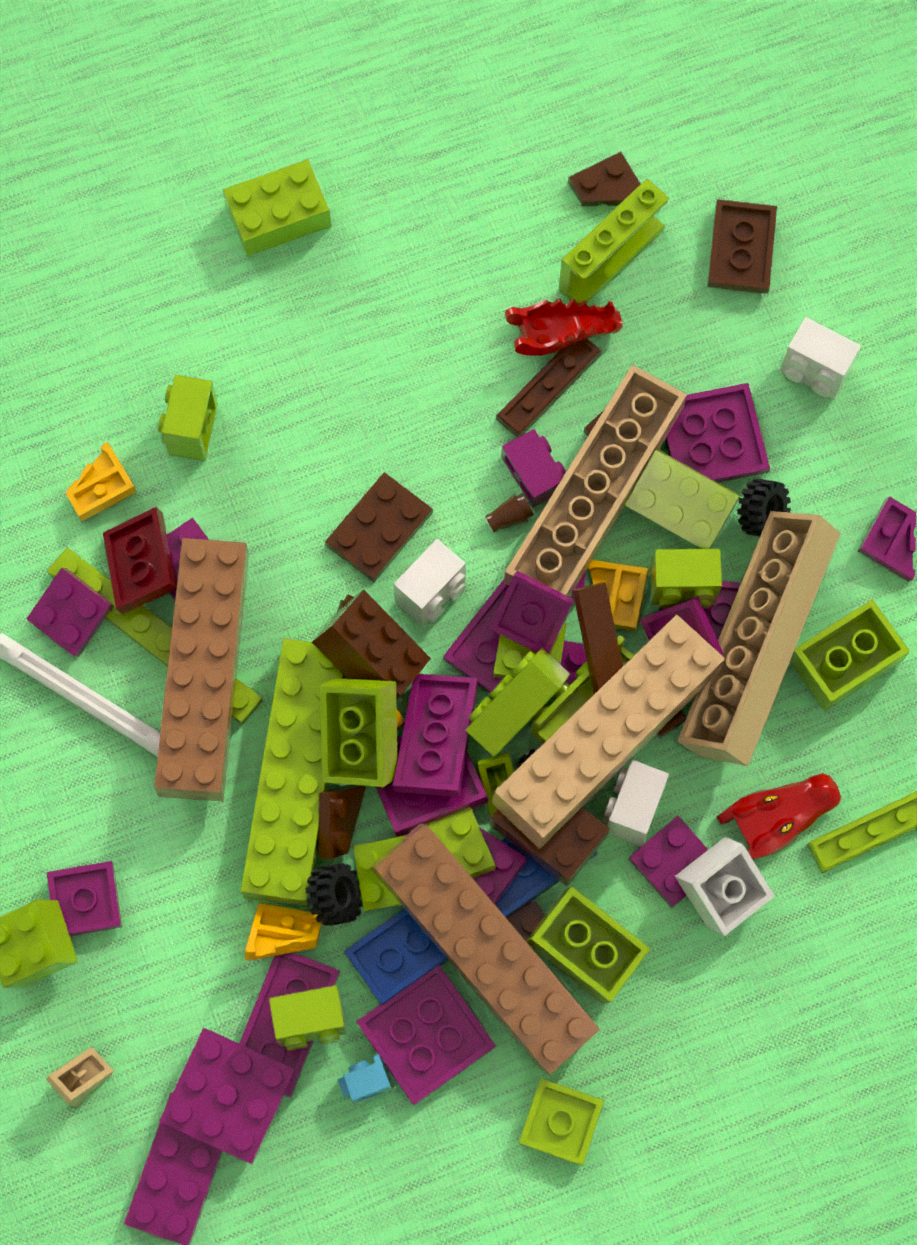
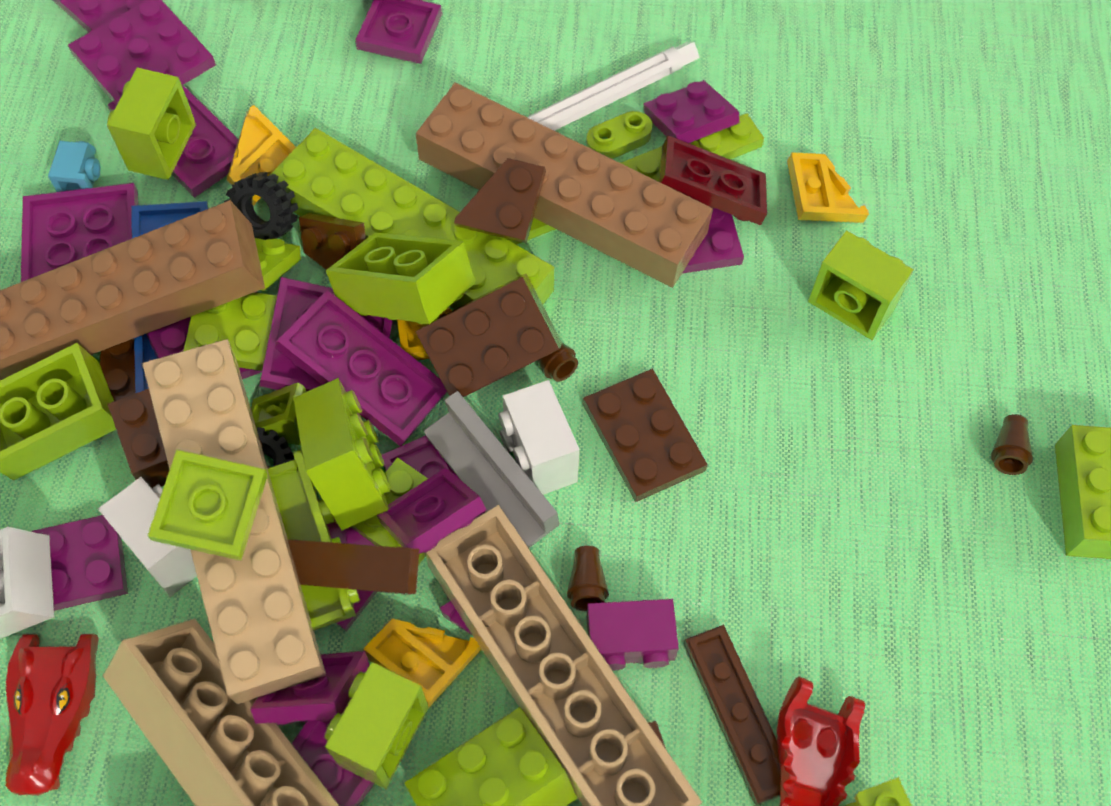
camera: 115 degrees right, 10 degrees down
(113, 662) = (620, 134): none -> lime plate
(254, 687) = (505, 202): none -> reddish brown wing
(267, 279) = (1013, 449): none -> reddish brown cone
(471, 607) = (490, 470): none -> light grey panel
(621, 724) = (208, 505): none -> lime plate

